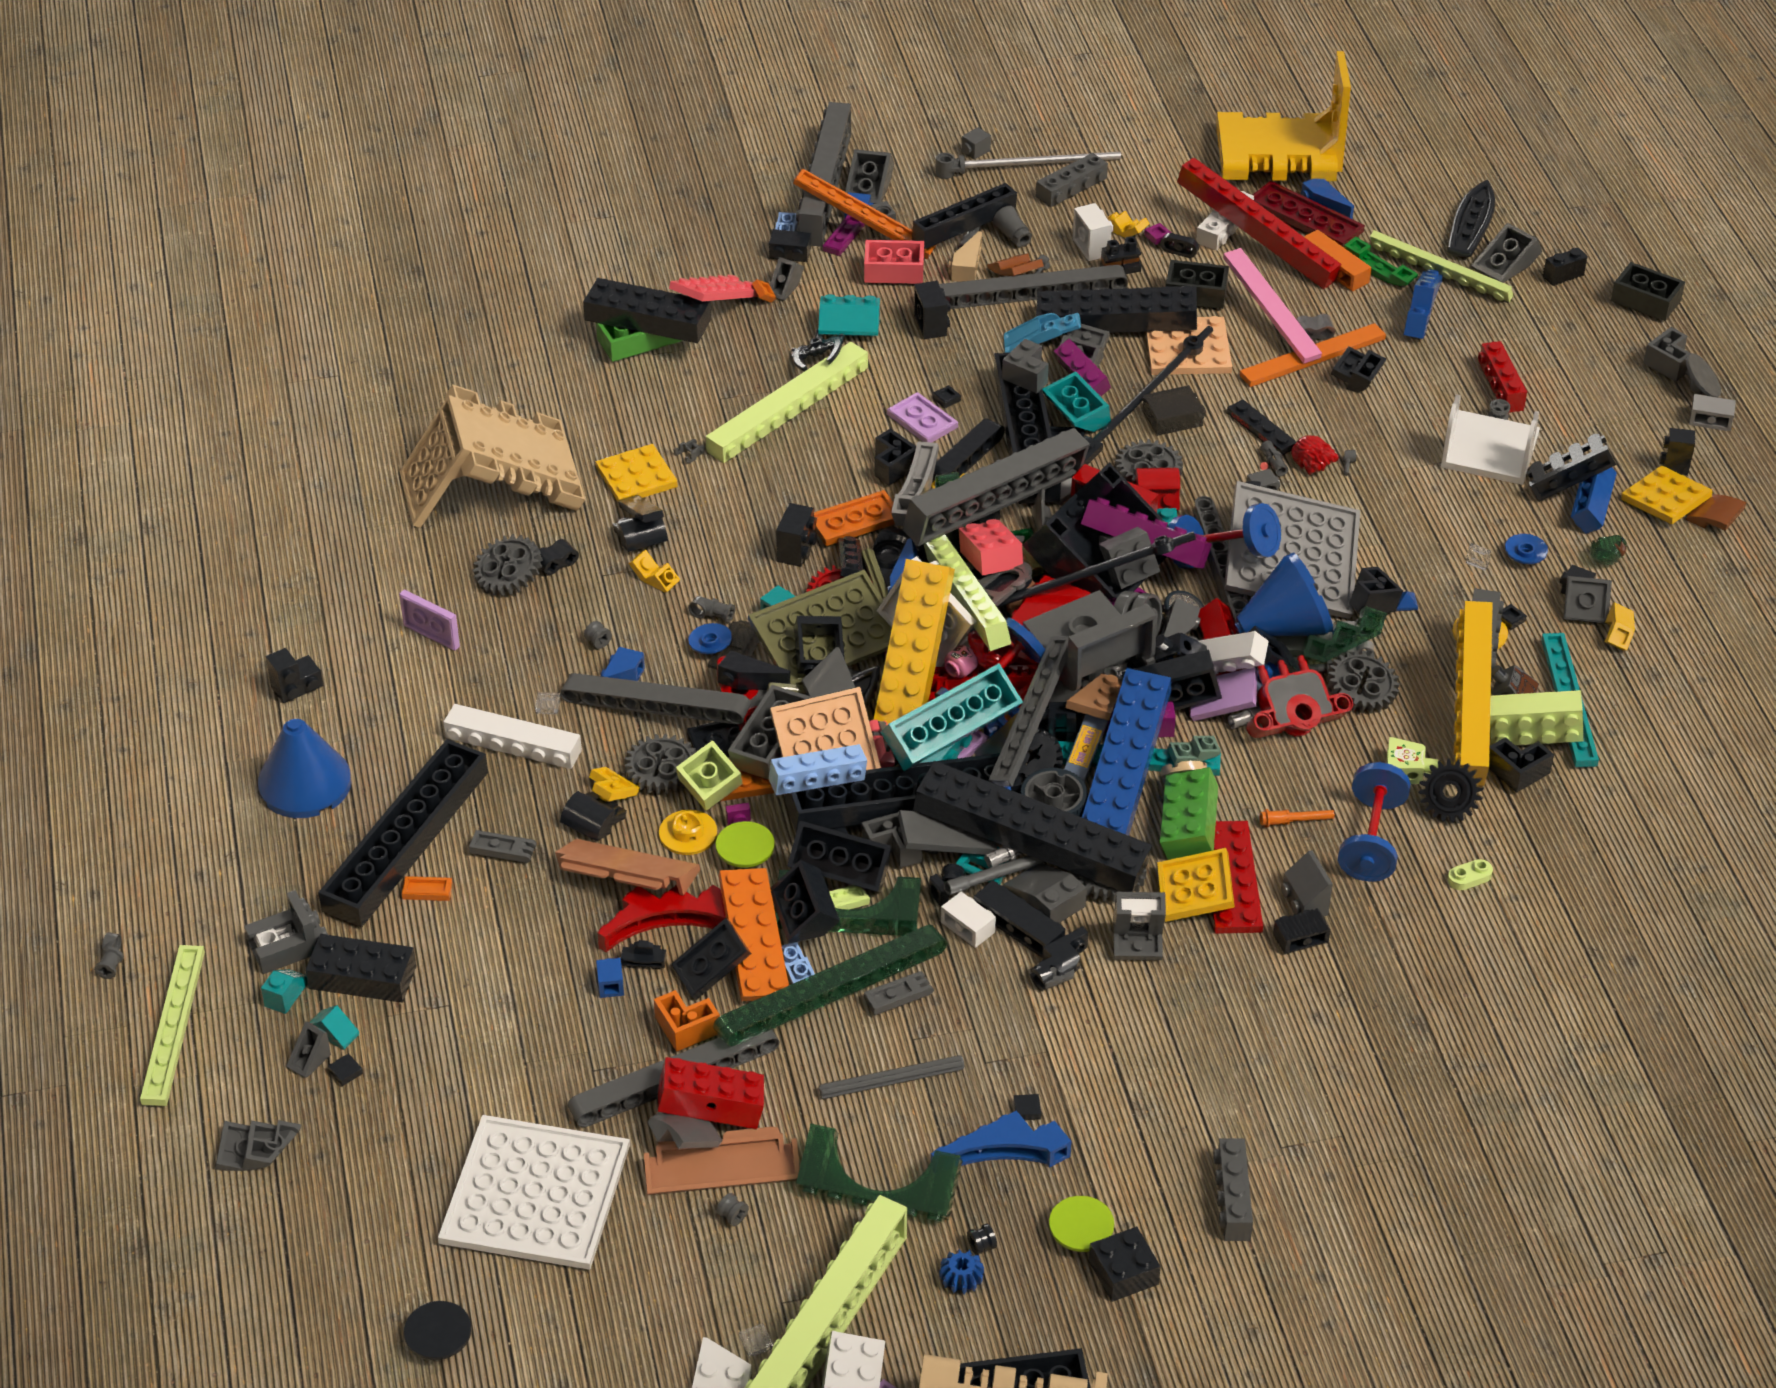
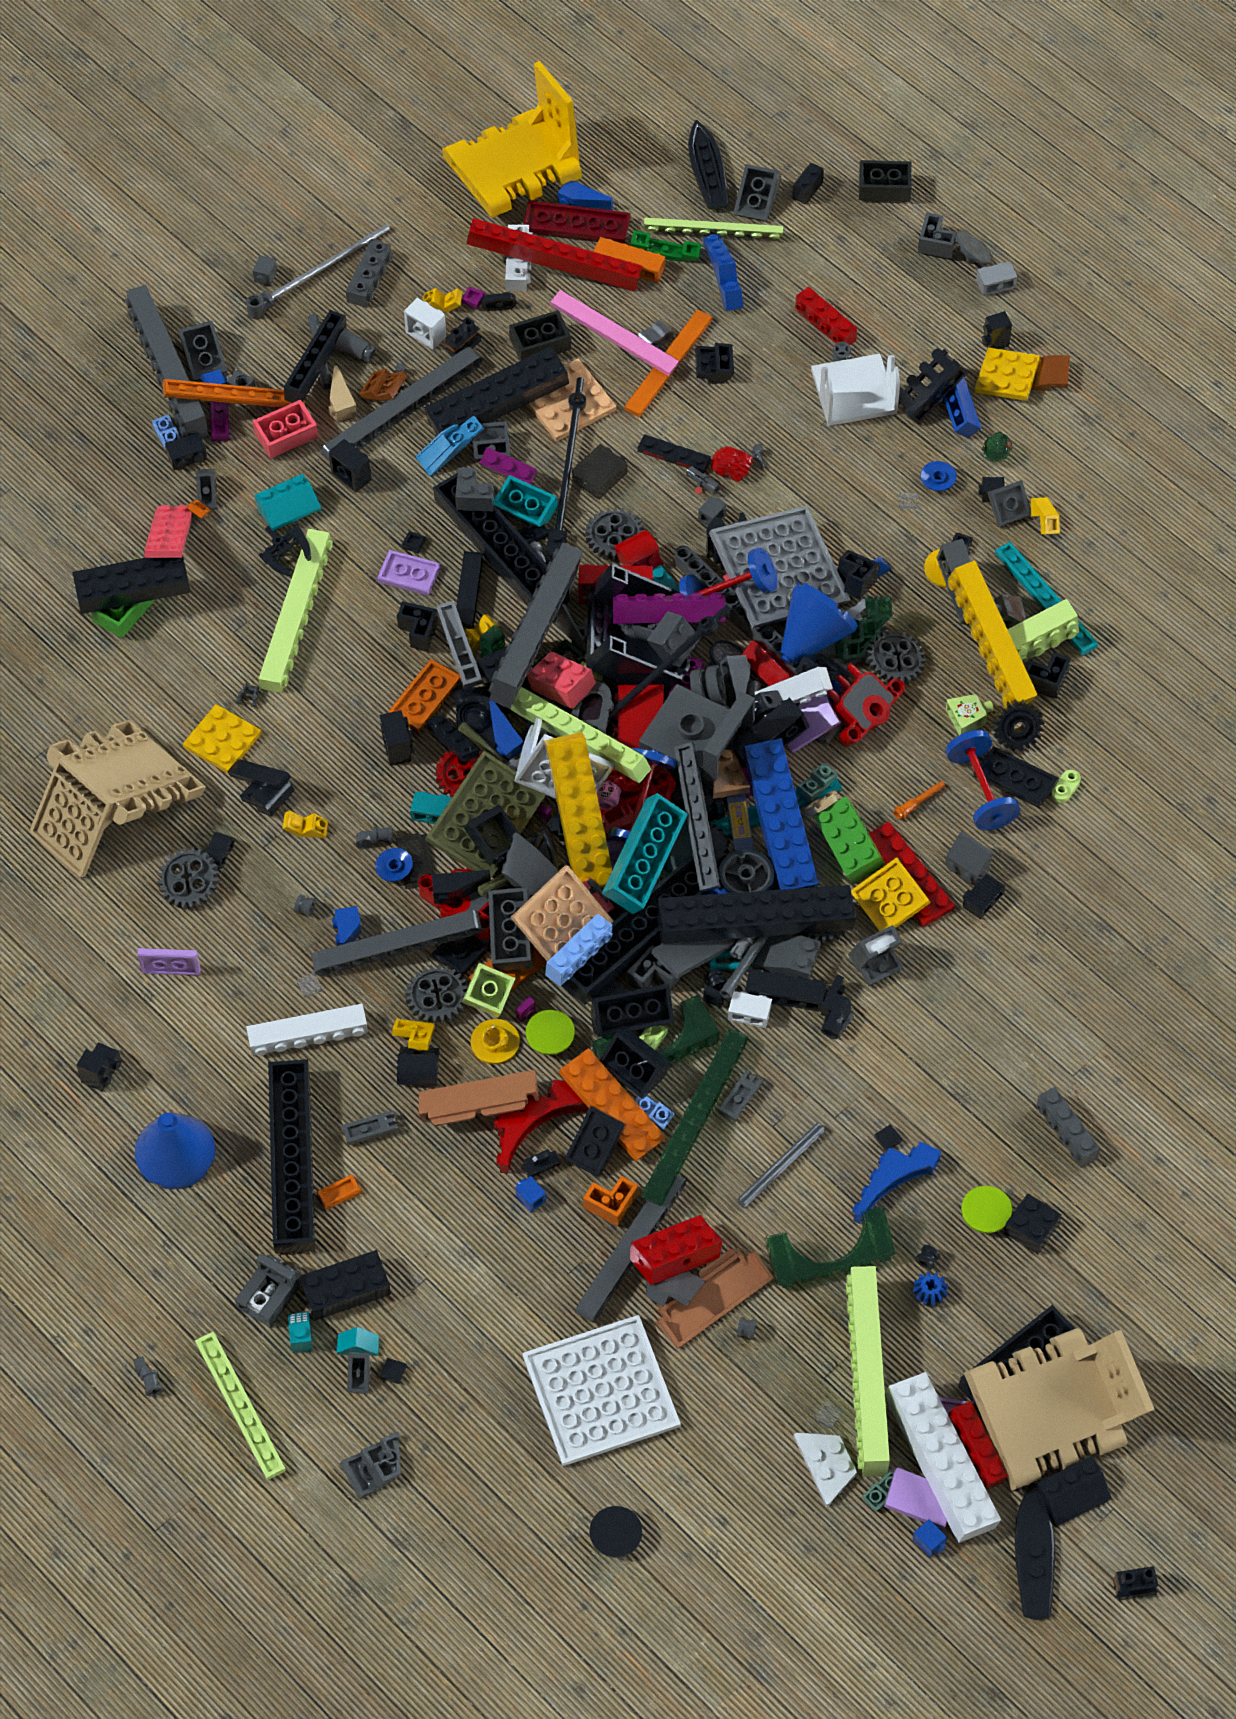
camera: 30 degrees left, 15 degrees up
(1419, 841) = (1017, 777): none -> black tile

